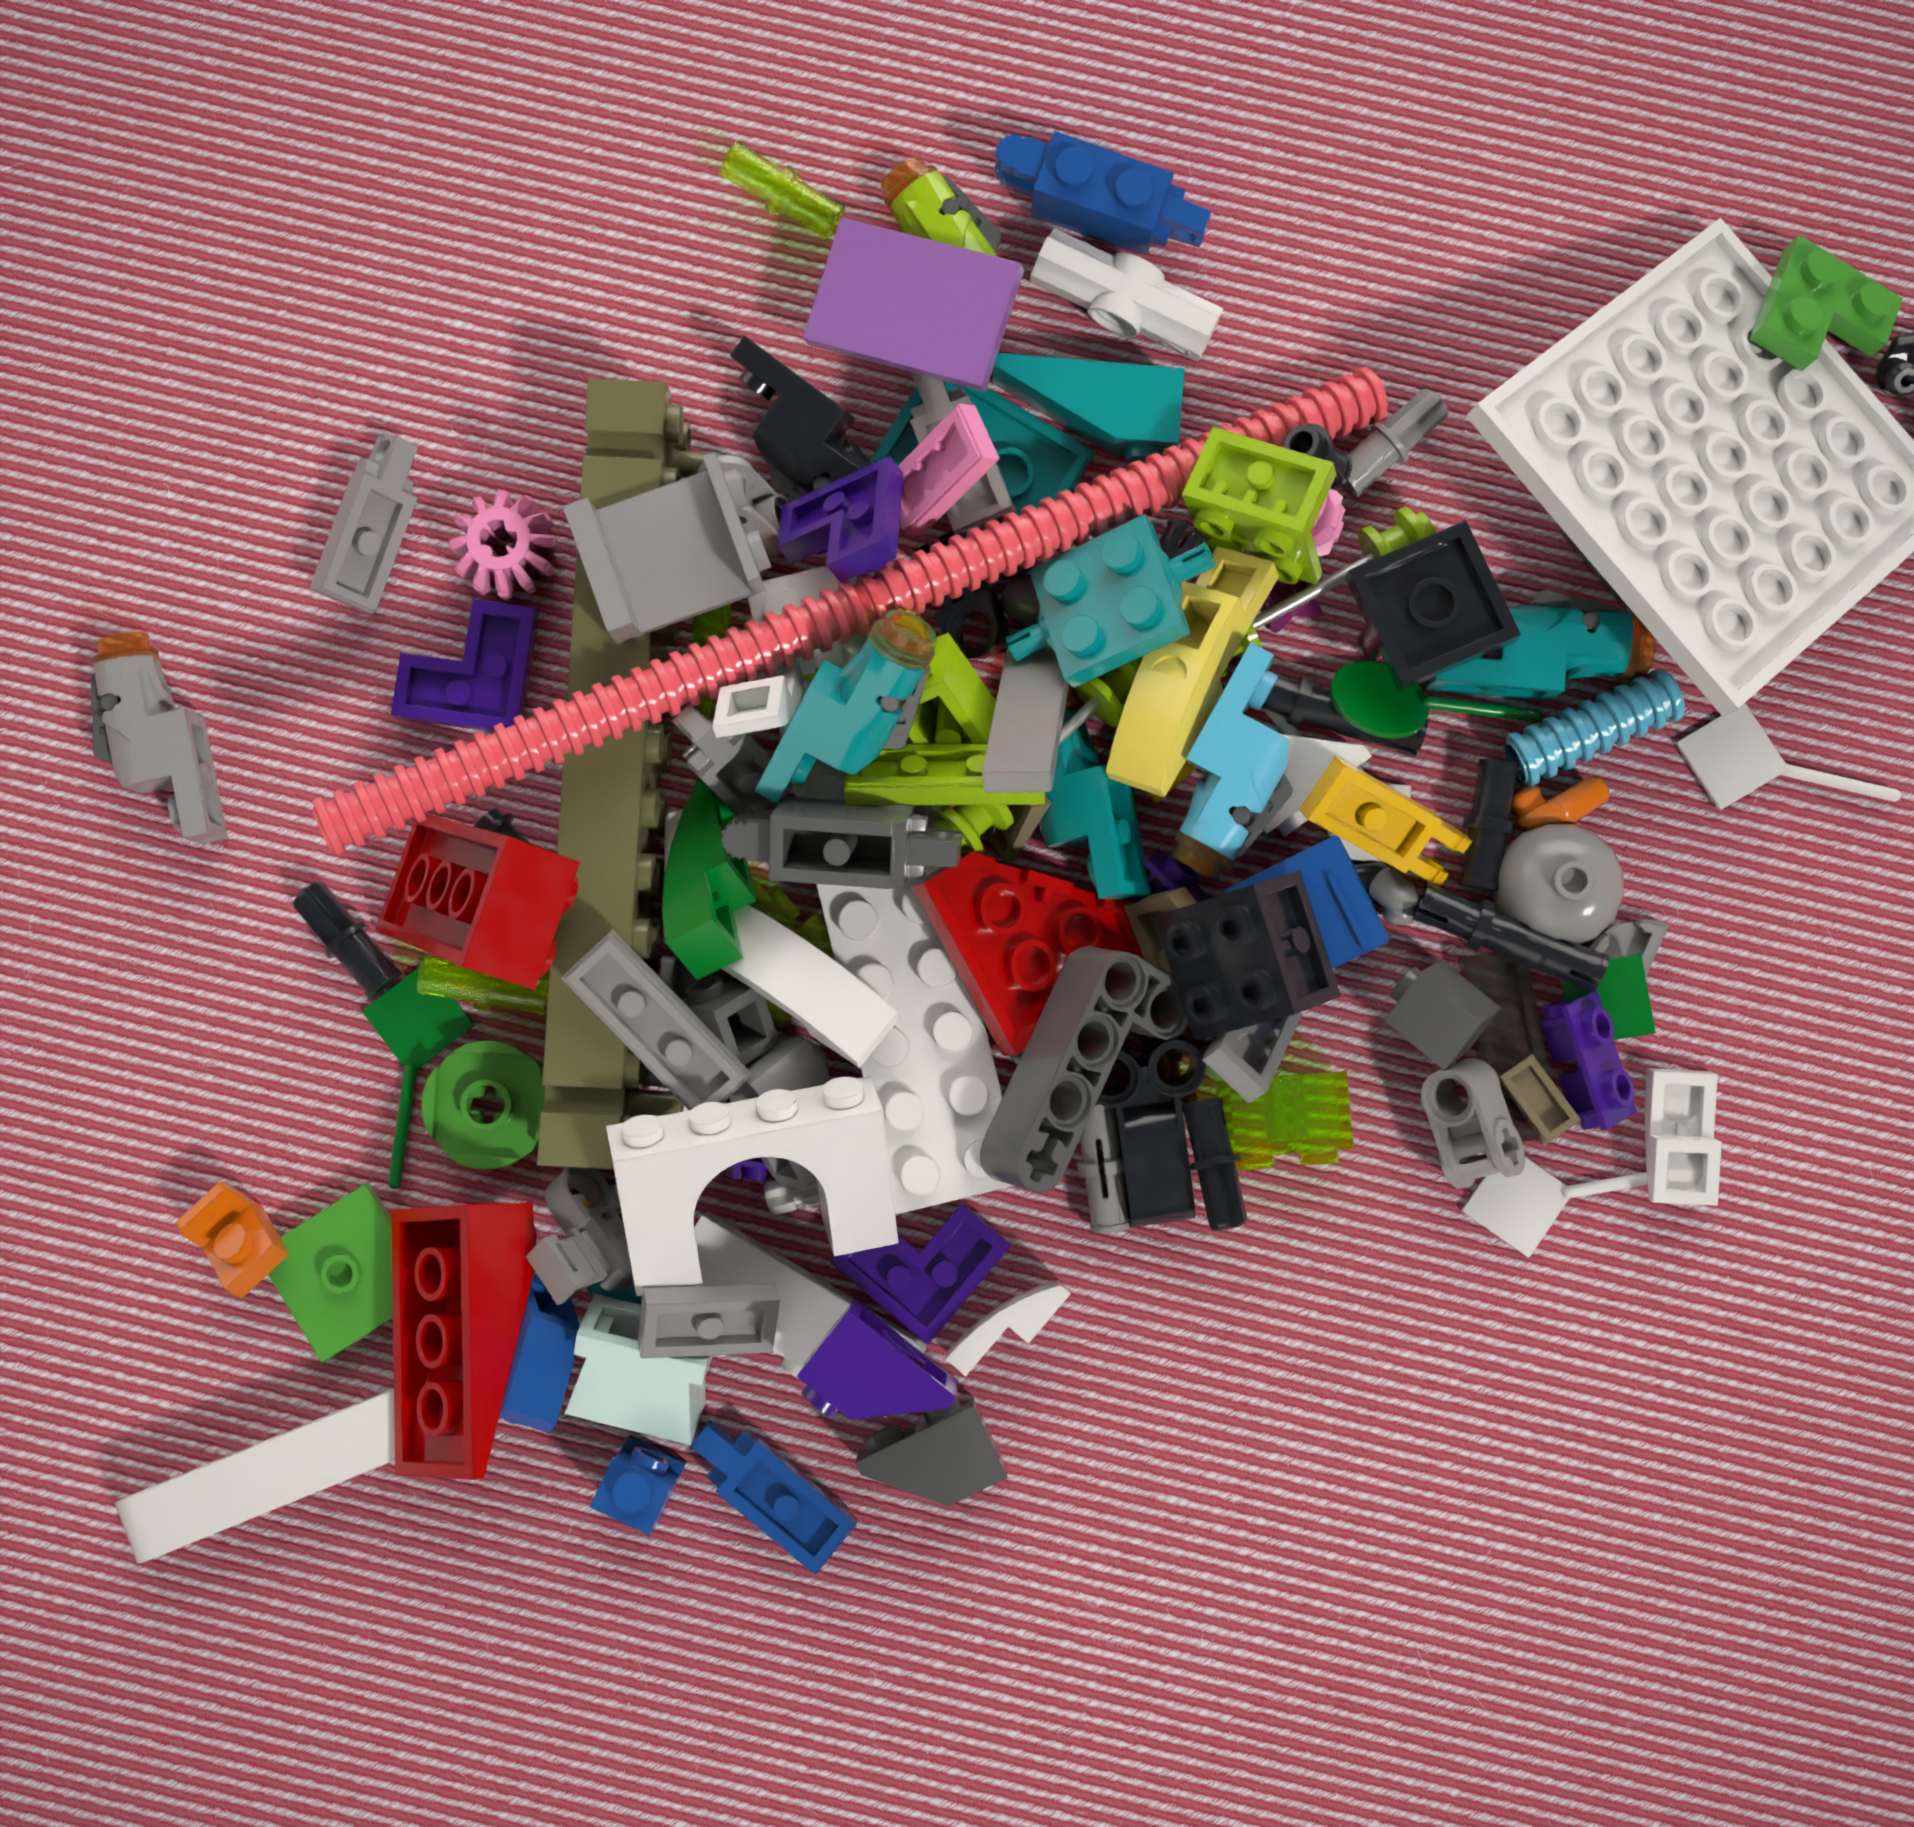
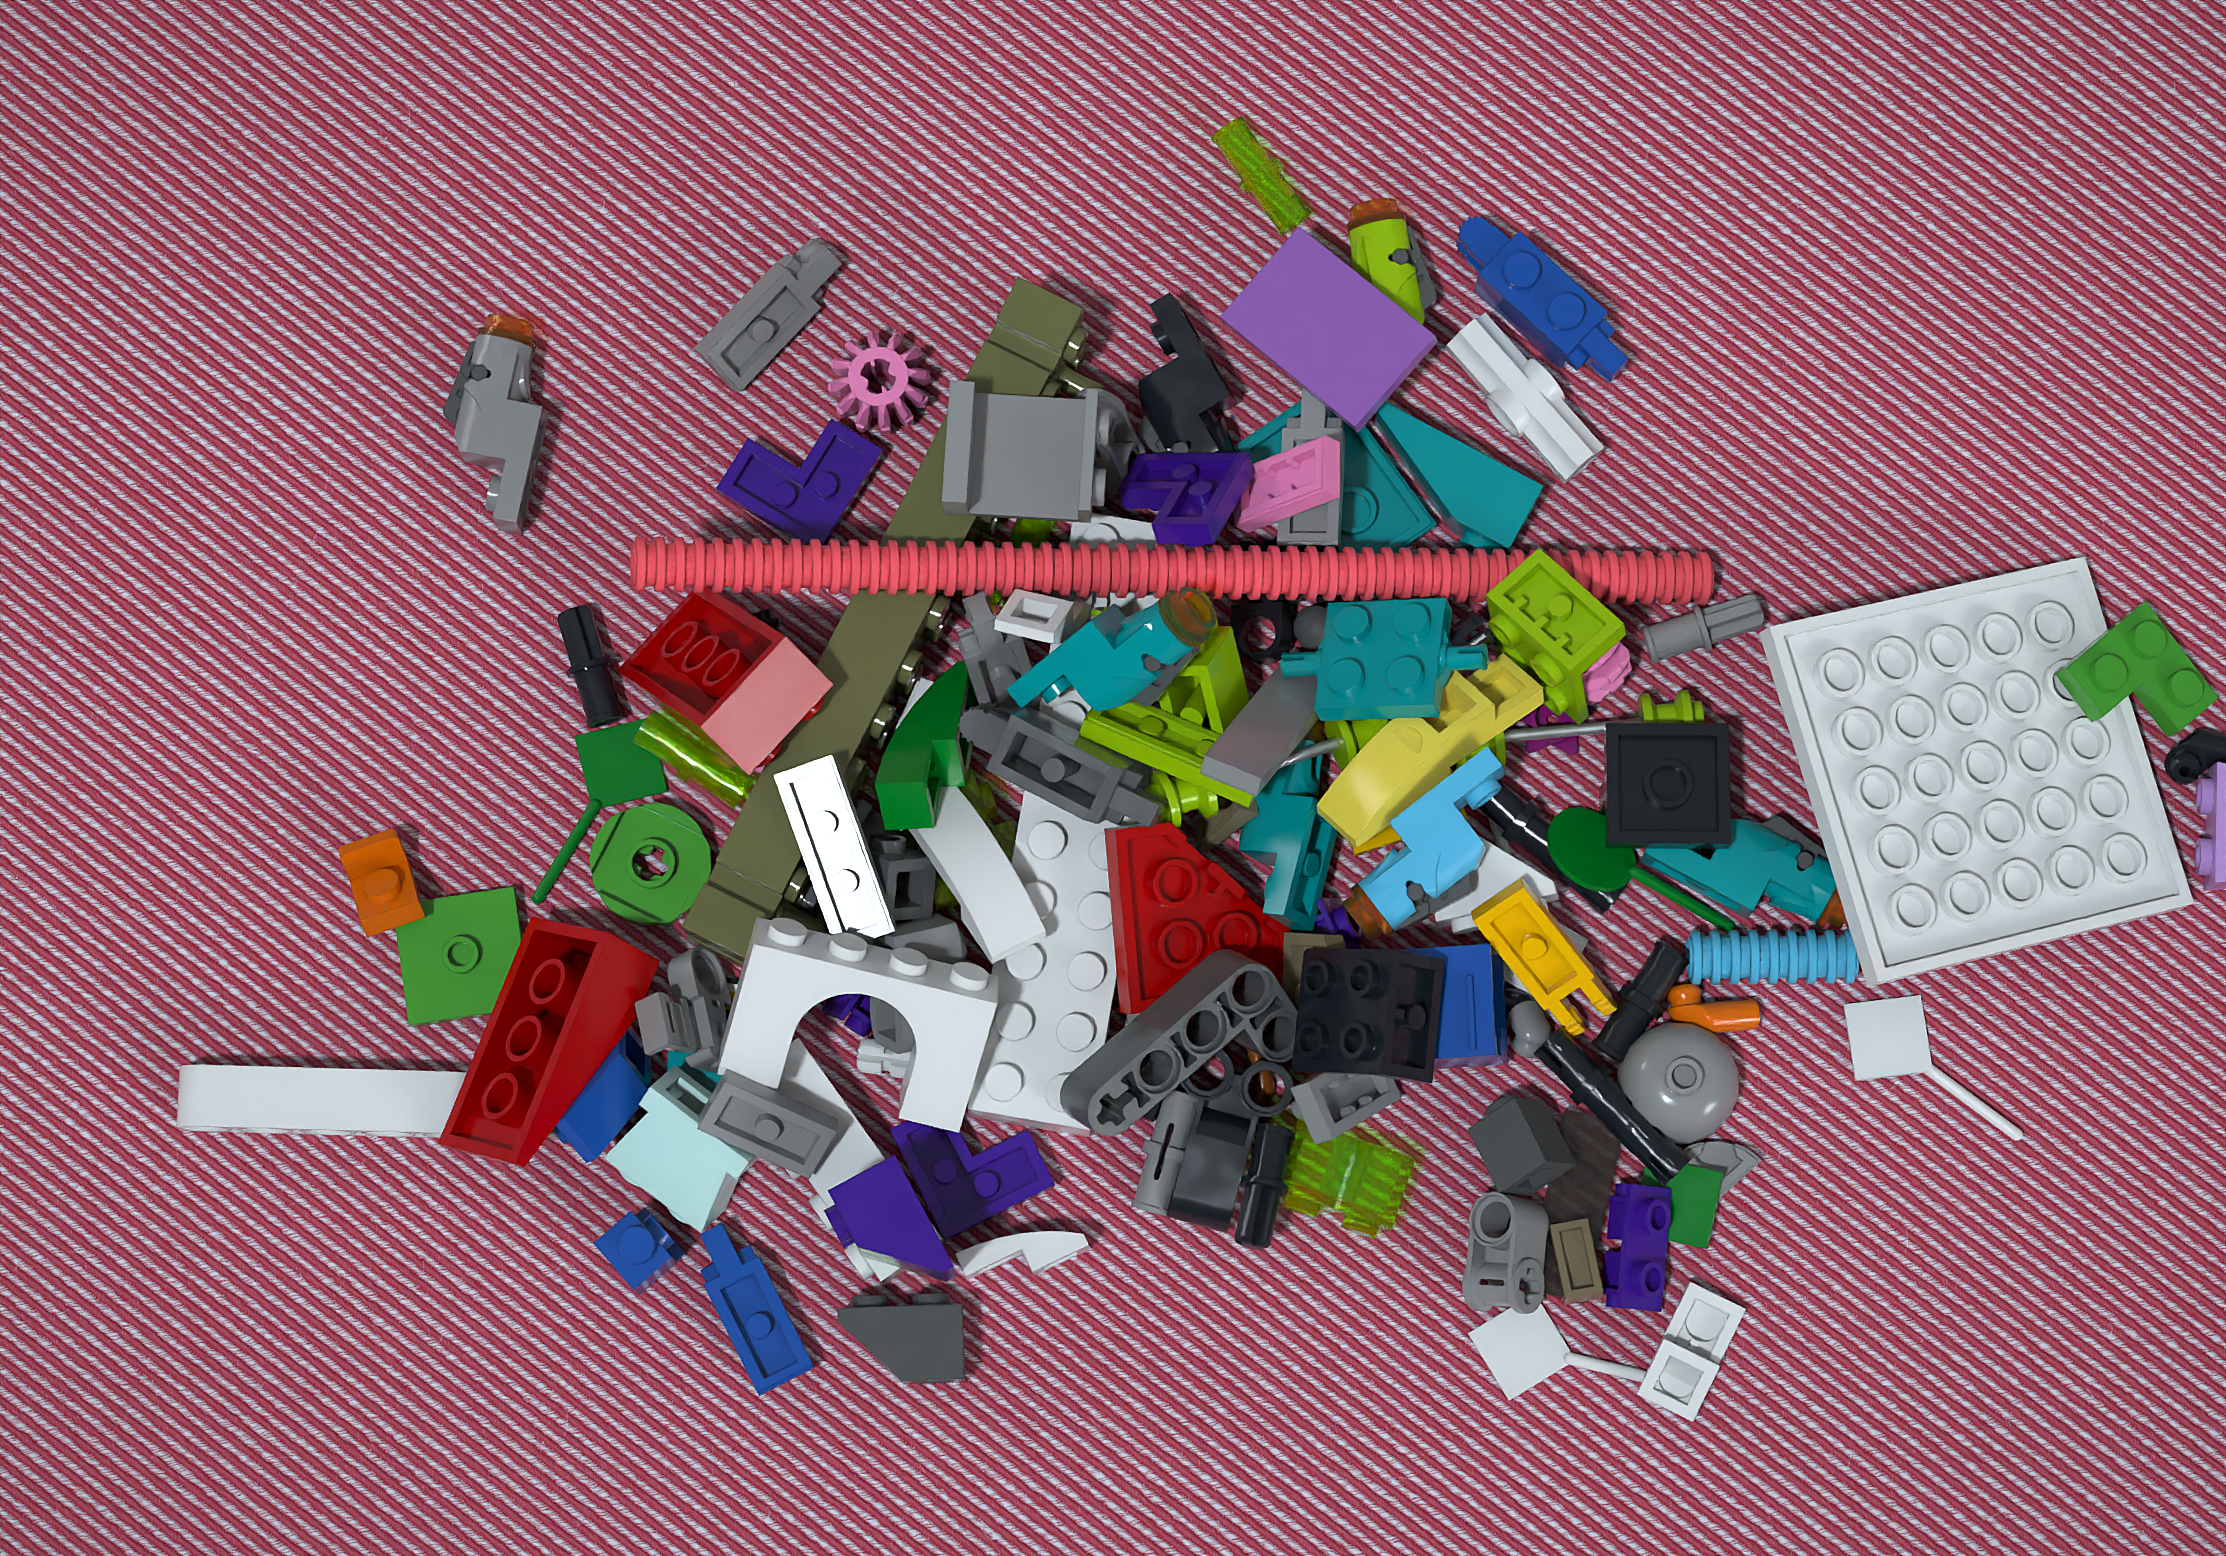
camera: 20 degrees right, 5 degrees down
(1317, 442) = (1625, 603): black pin -> none

